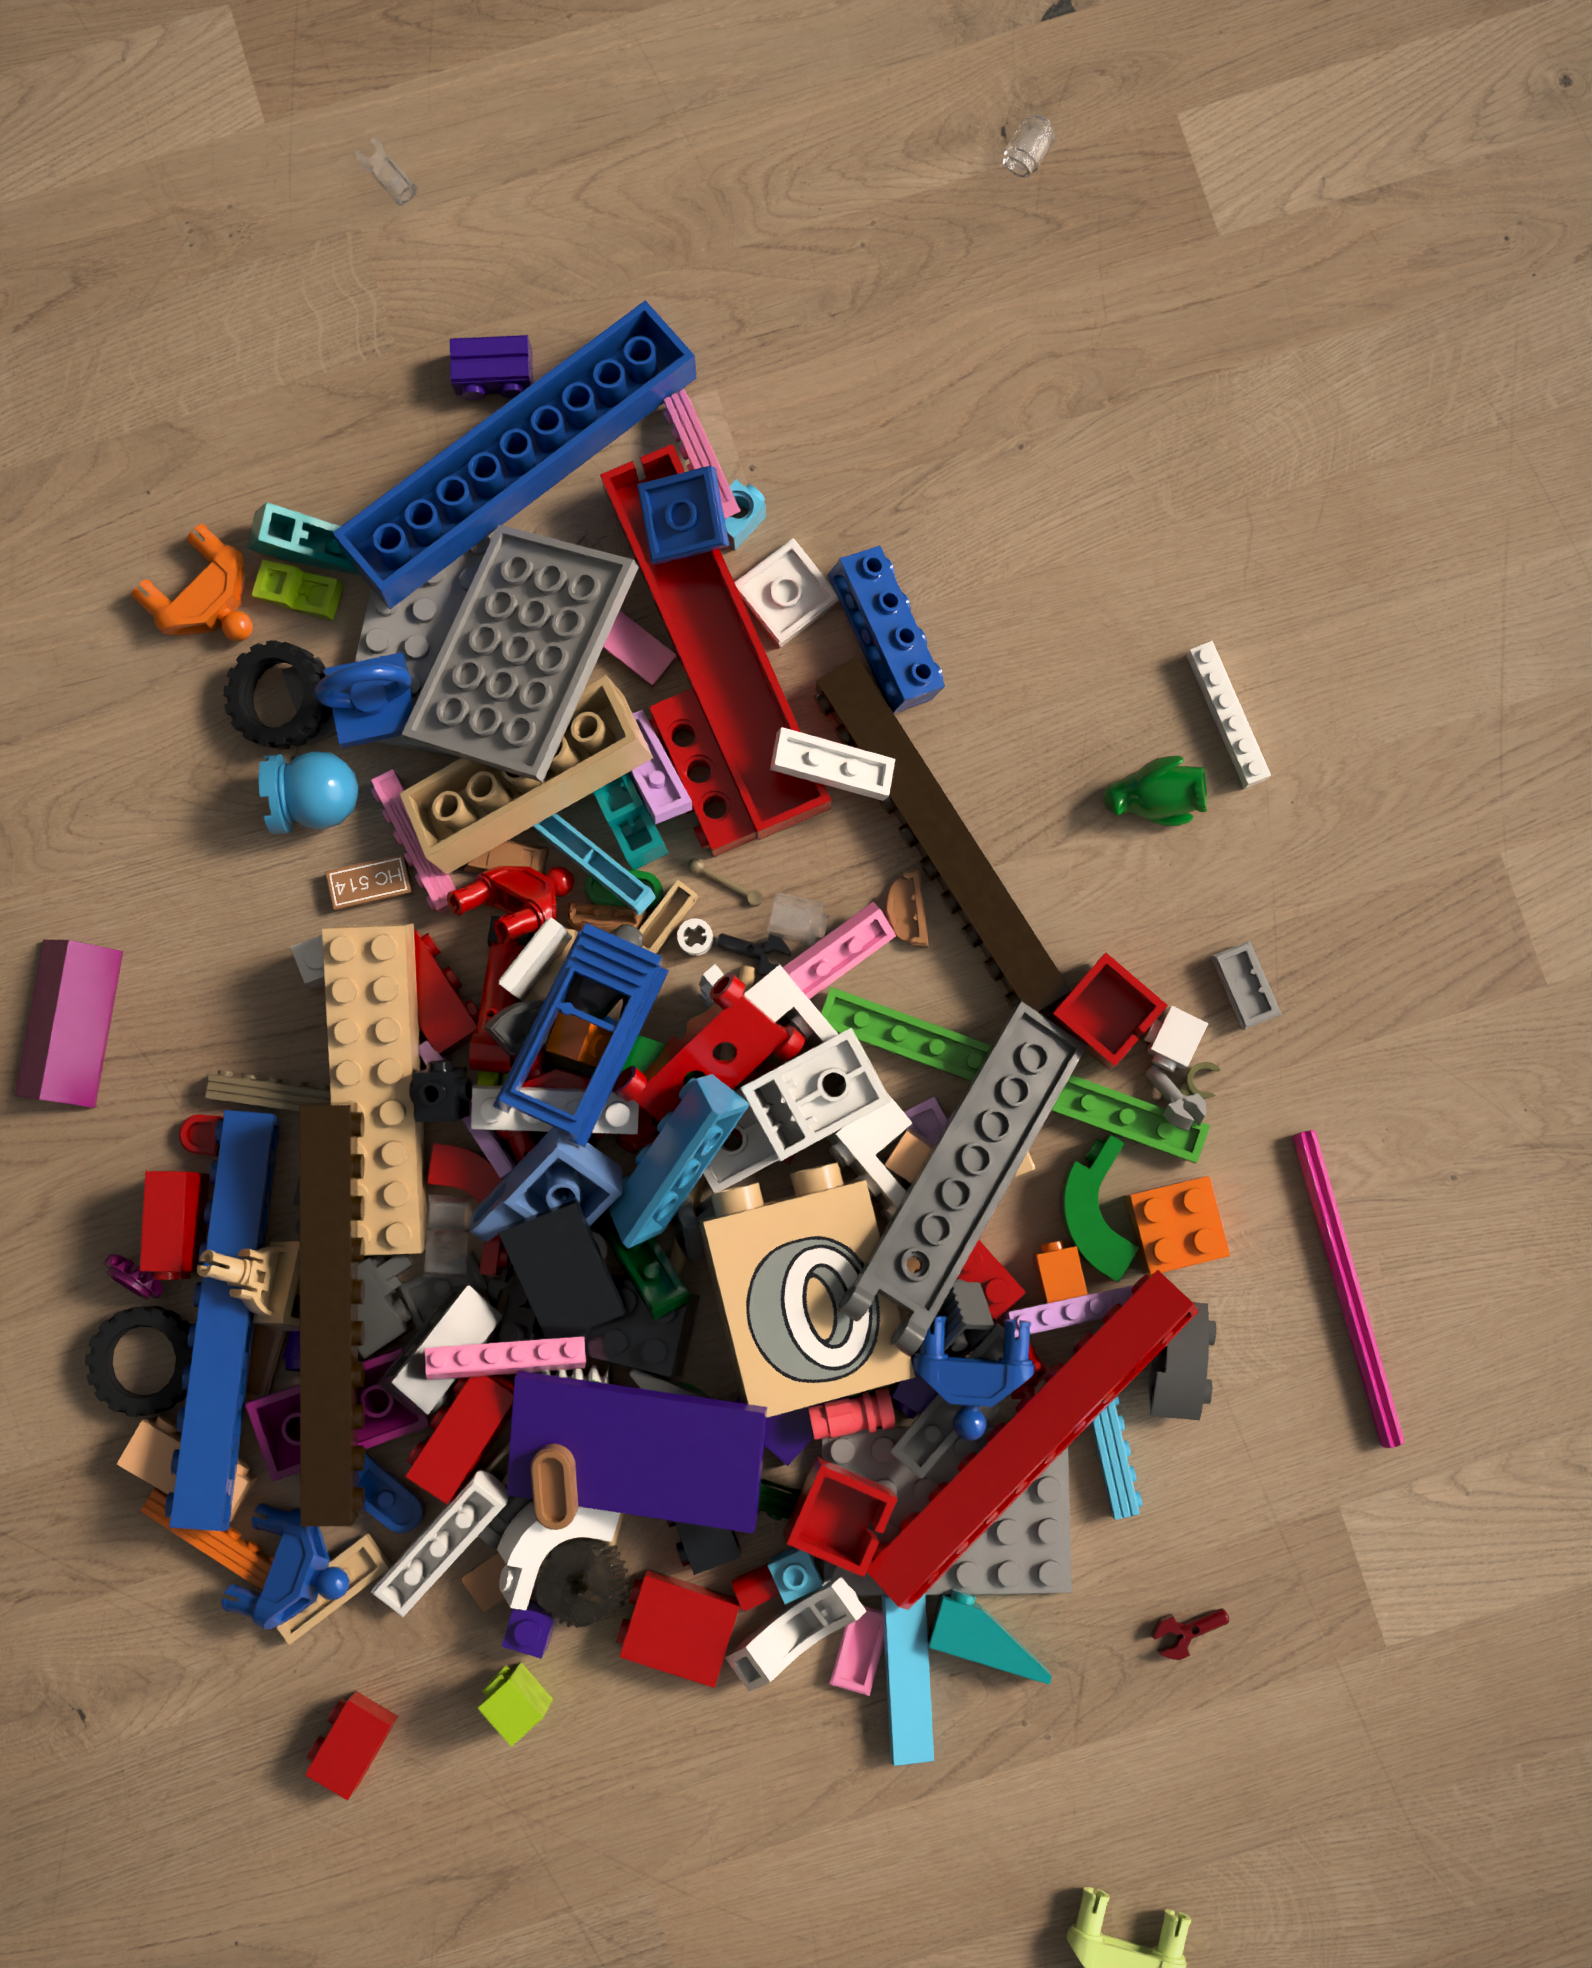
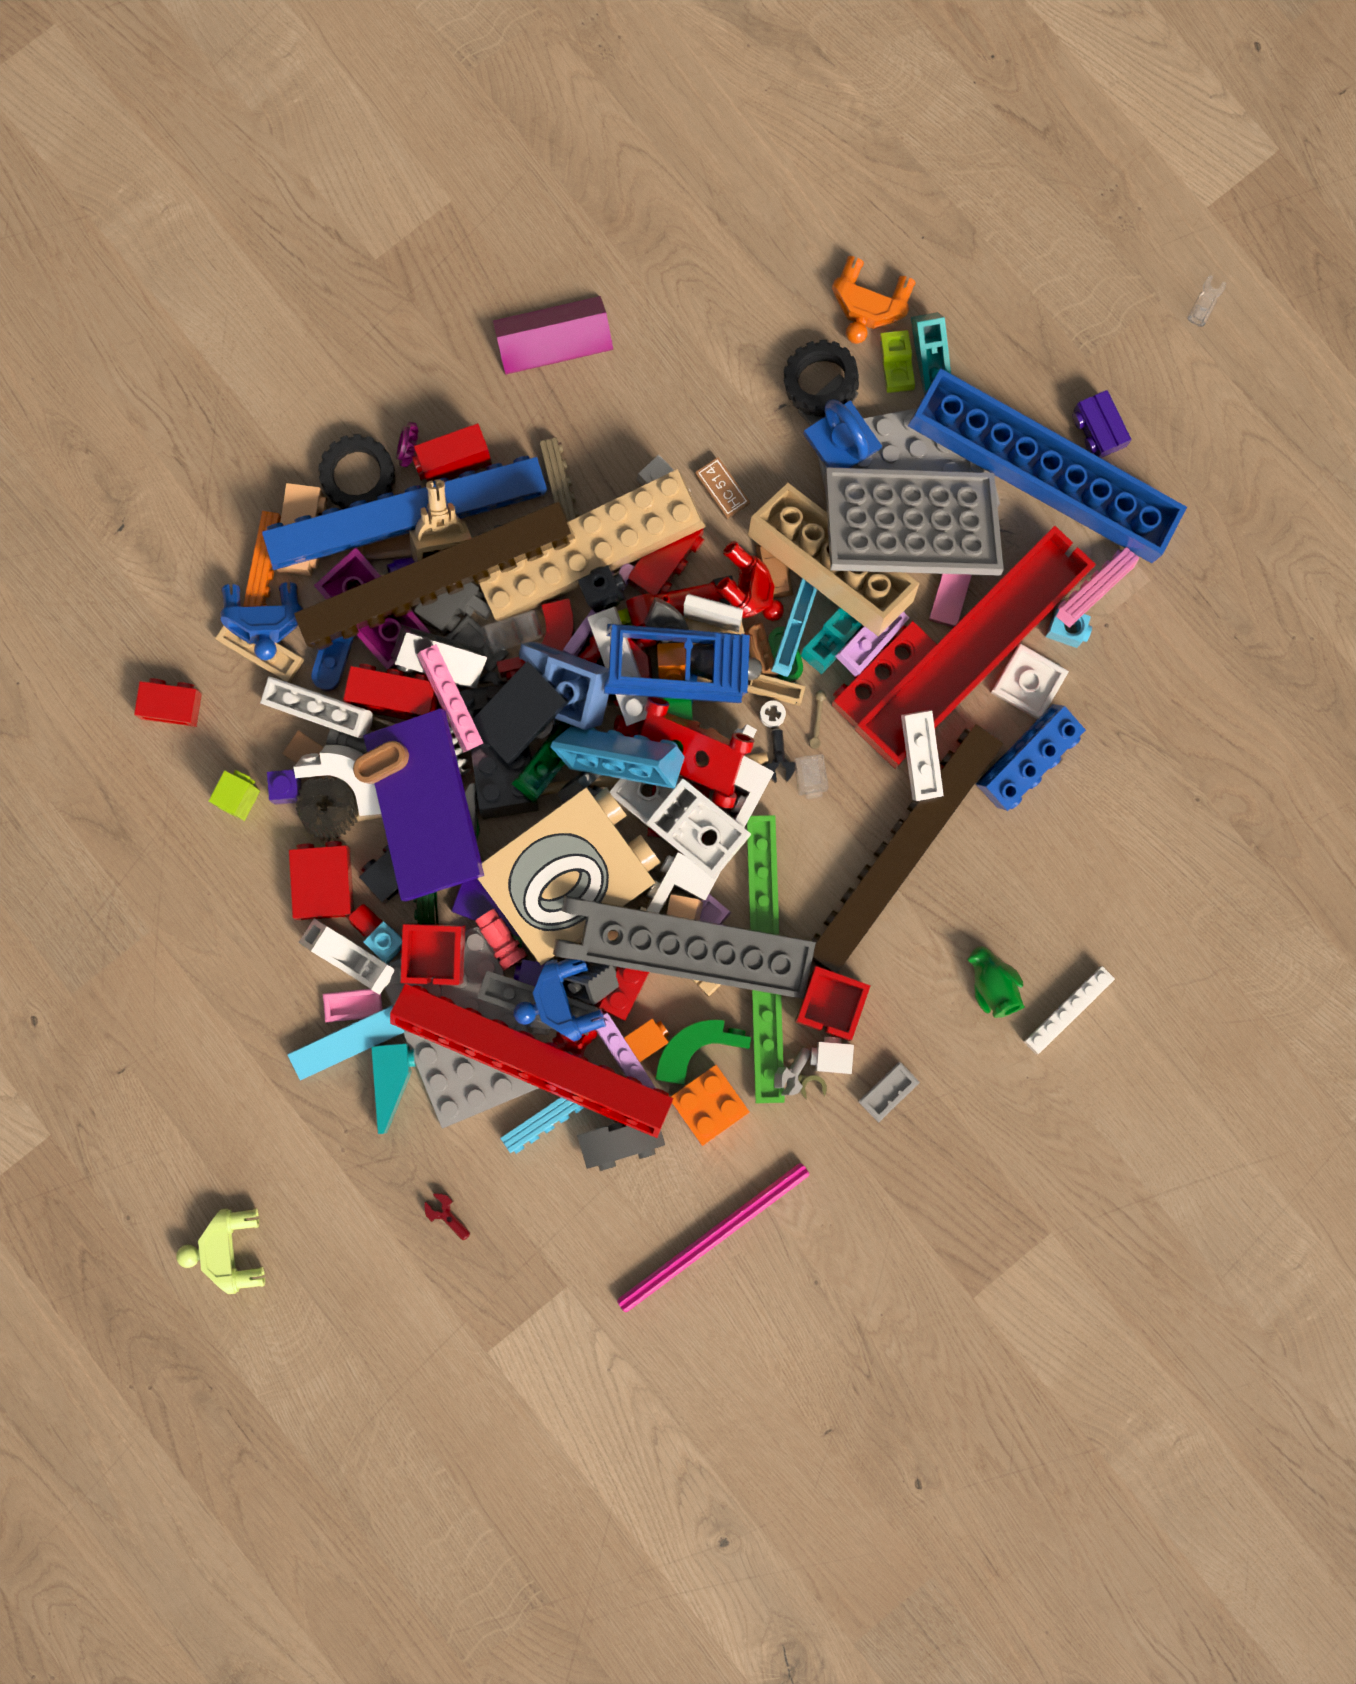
camera: 60 degrees right, 0 degrees up
(198, 1134) = (514, 447): red tile -> none
(310, 790) = (766, 425): dark azure tile -> none
(429, 876) = (739, 531): bright pink piece -> none
(683, 515) = (1049, 590): blue tile -> none
(840, 950) = (800, 811): bright pink plate -> none
(906, 909) = (847, 846): medium nougat tile -> none

